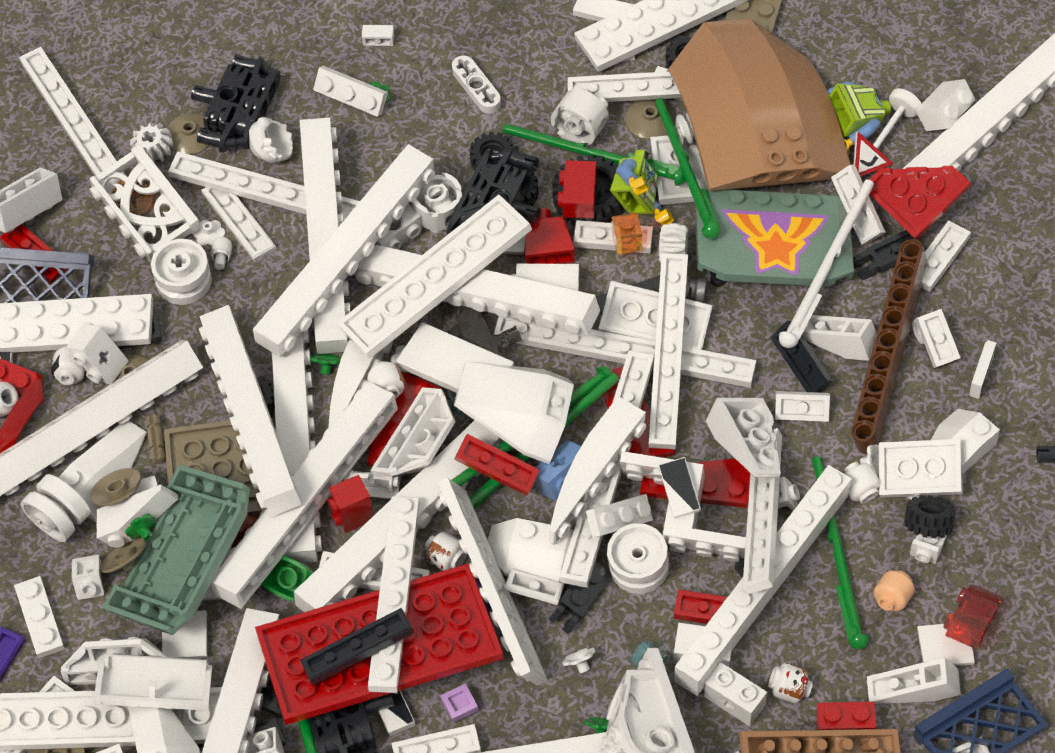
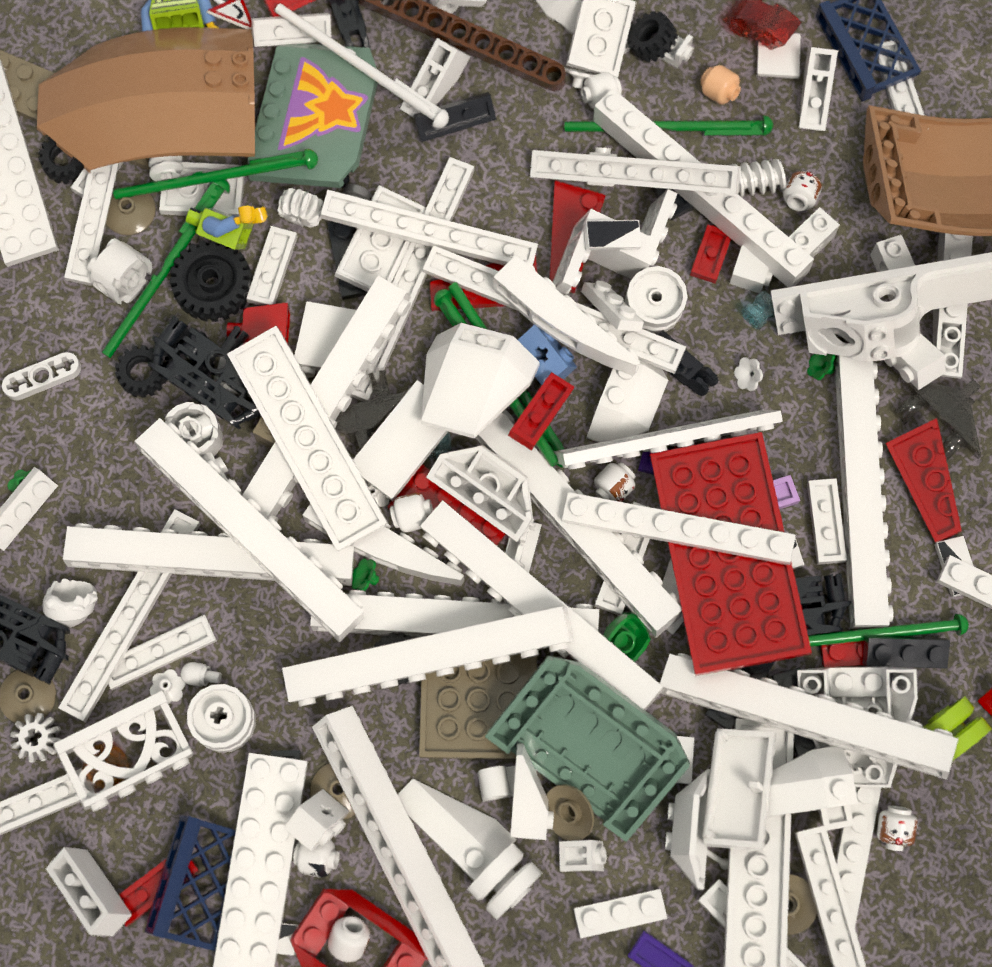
camera: 85 degrees left, 15 degrees up
(115, 487) = (484, 811): dark tan dish -> none
(141, 527) = (549, 786): green plant -> none
(155, 439) = (425, 768): dark tan axle -> none
(350, 504) = (552, 566): red brick -> none
(357, 646) = (745, 567): black tile -> none
(534, 586) = (671, 402): white slope -> none
(578, 189) = (219, 283): red brick -> none
(627, 233) = (282, 247): clear orange brick -> none
(746, 433) = (532, 180): white wedge -> none
(792, 636) = (761, 176): none -> white piece
(802, 406) = (508, 126): white plate -> none
(845, 716) = (849, 150): red brick -> none

